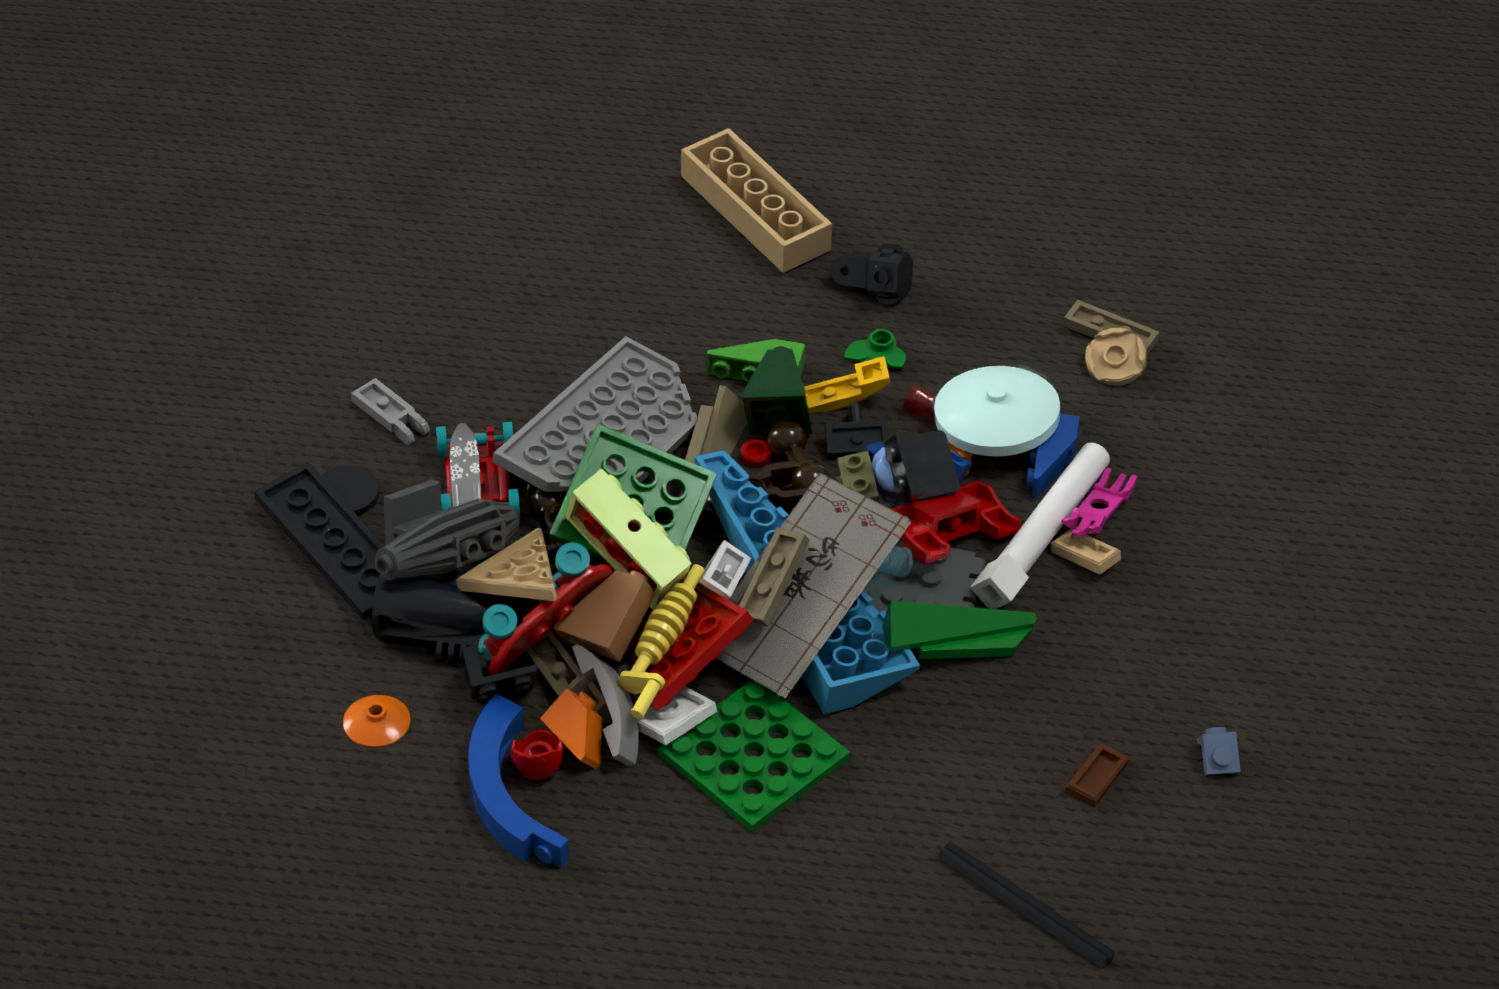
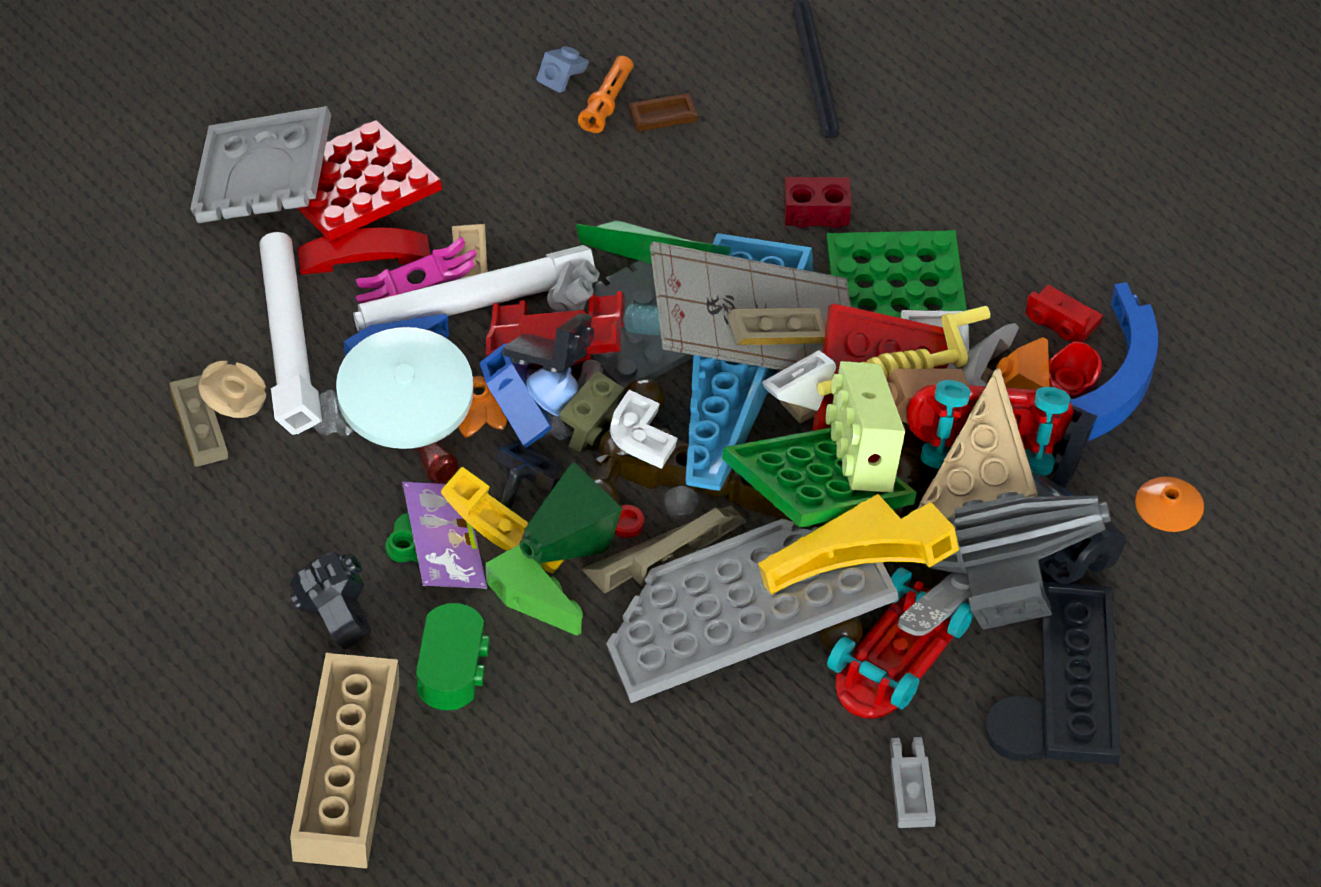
camera: 140 degrees left, 5 degrees up
(539, 468) = (862, 536): none -> yellow arch
(596, 810) = (1062, 314): none -> red bracket
(766, 295) = (451, 656): none -> green brick
(789, 460) = (633, 433): none -> white plate
(841, 346) = (442, 539): none -> medium lavender sticker
(884, 768) = (817, 201): none -> dark red brick
(968, 546) = (573, 287): none -> light grey hips
(1071, 375) = (293, 398): none -> white brick
(1150, 742) = (619, 71): none -> orange pin
(1160, 509) = (362, 246): none -> red slope
(1221, 550) = (361, 158): none -> red piece
(1309, 498) = (261, 164): none -> light grey hinge

